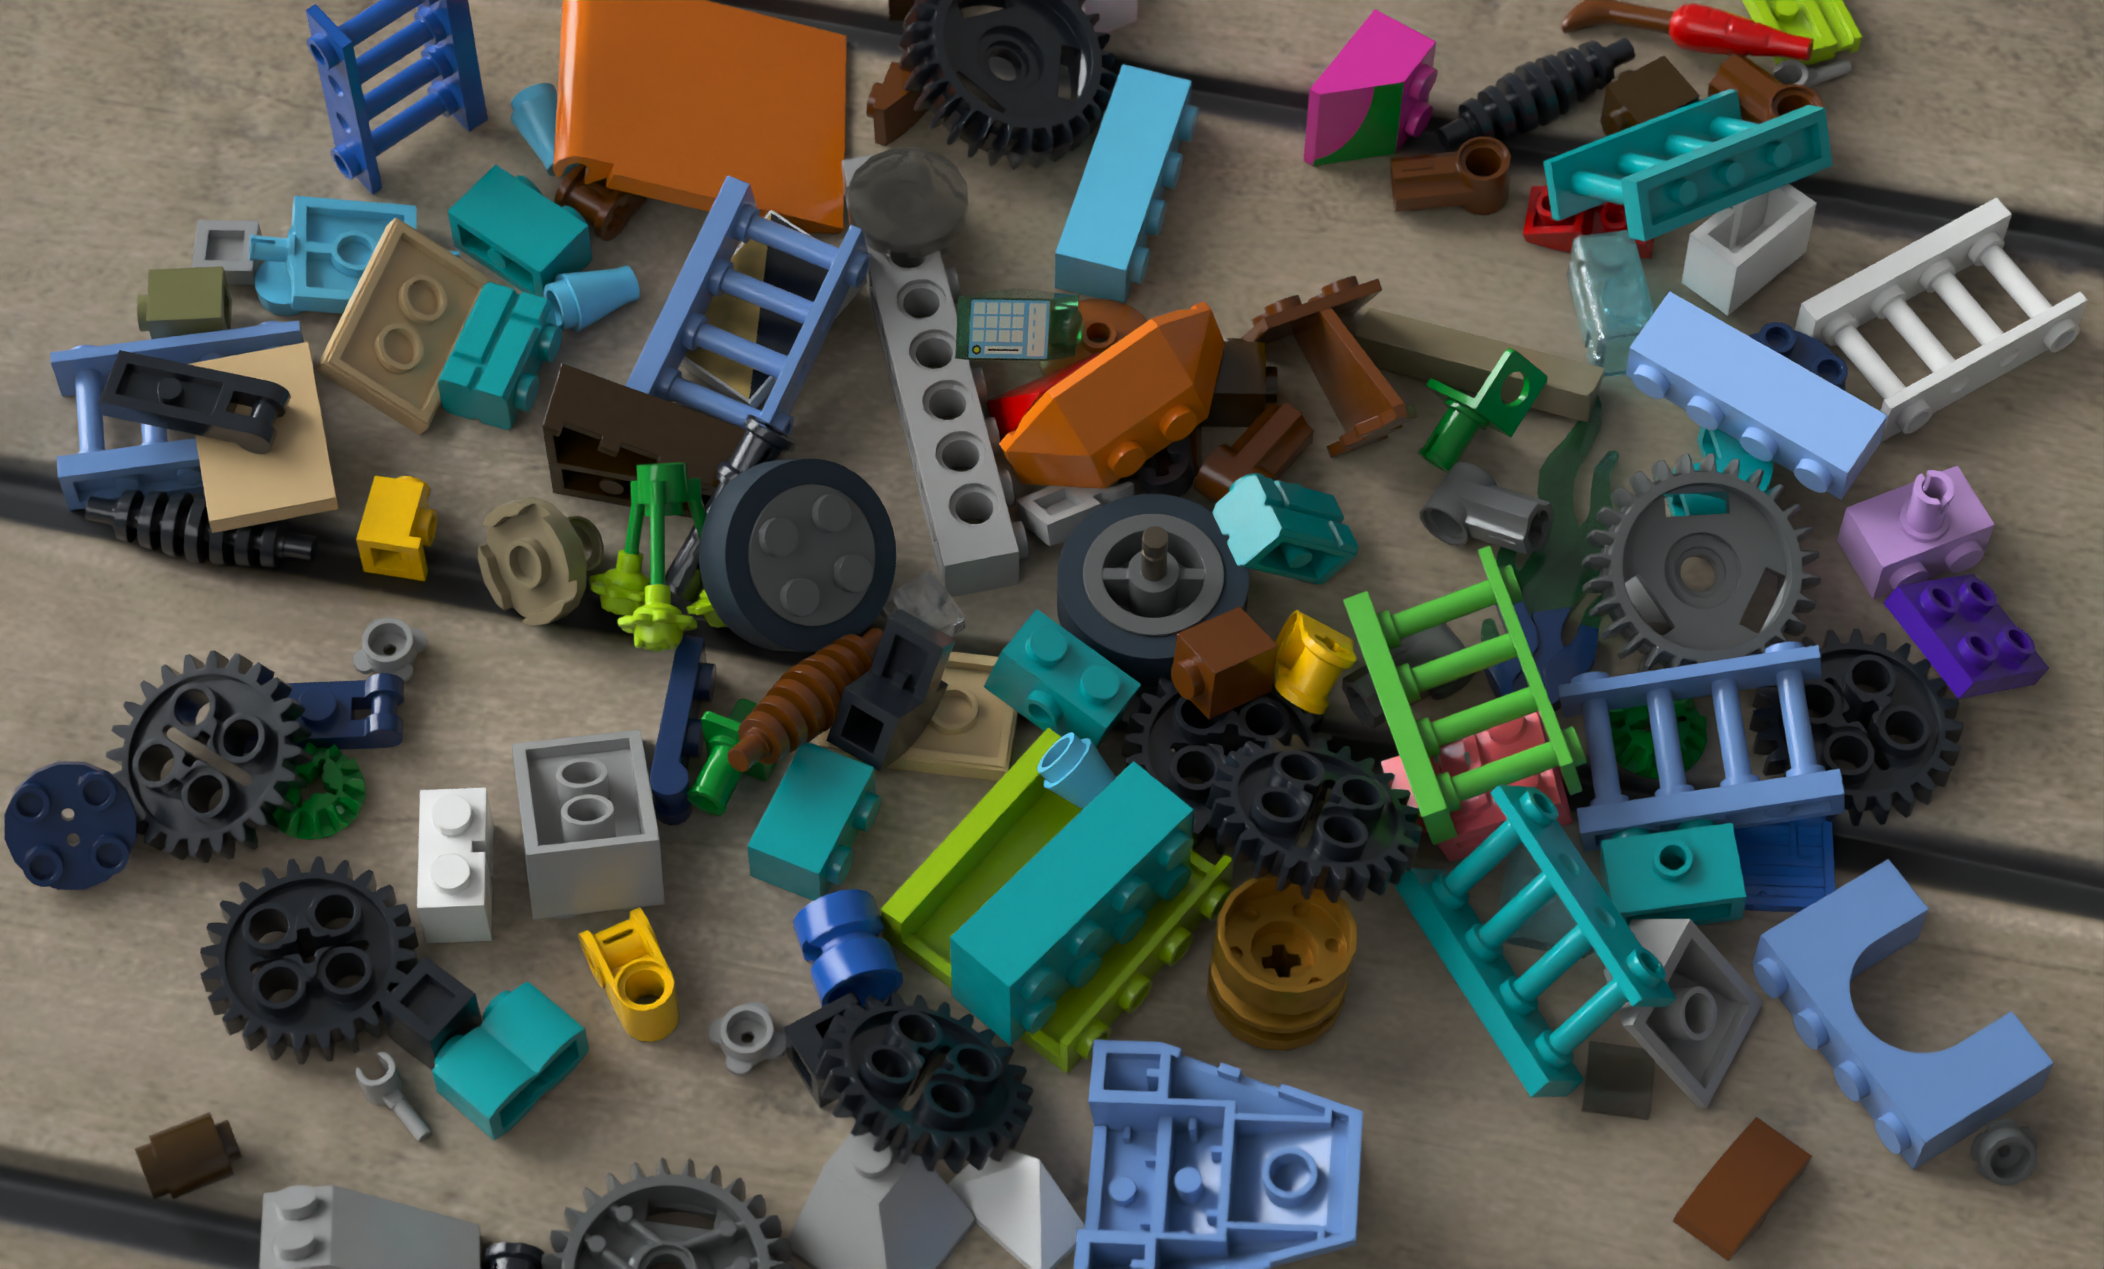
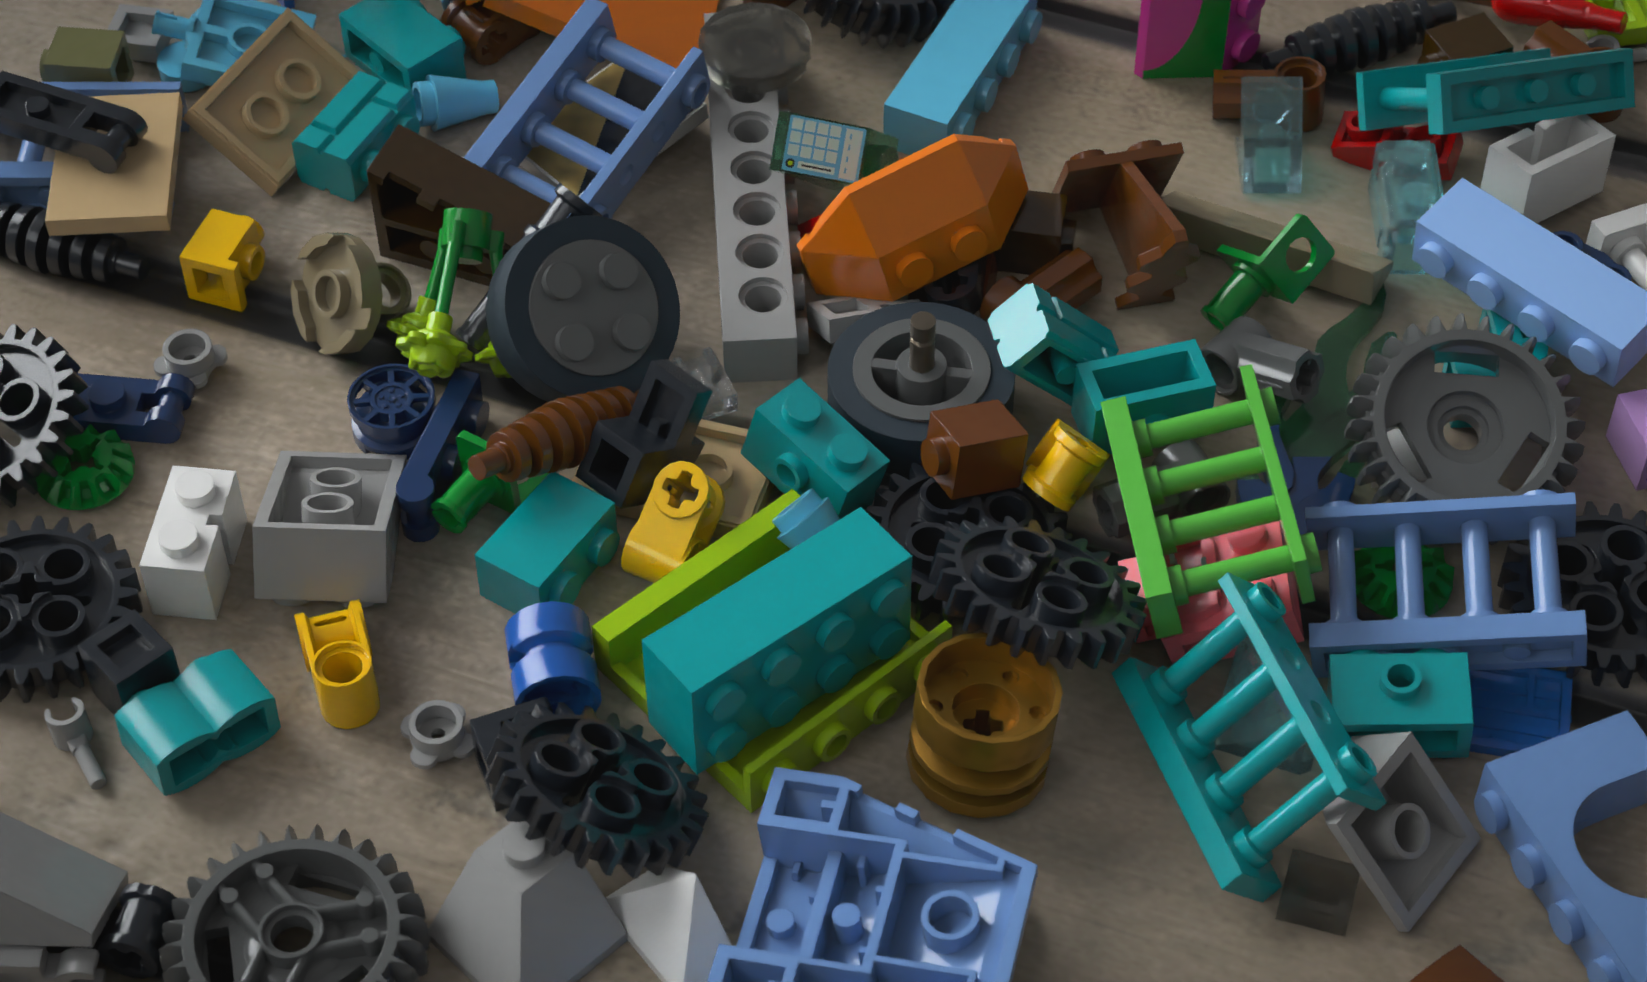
camera: 10 degrees right, 10 degrees down
(617, 685) = (391, 410): none -> dark blue wheel
(935, 796) = (673, 530): none -> yellow piece
(1394, 561) = (1156, 384): none -> teal brick
(1461, 235) = (1270, 135): none -> clear light blue slope

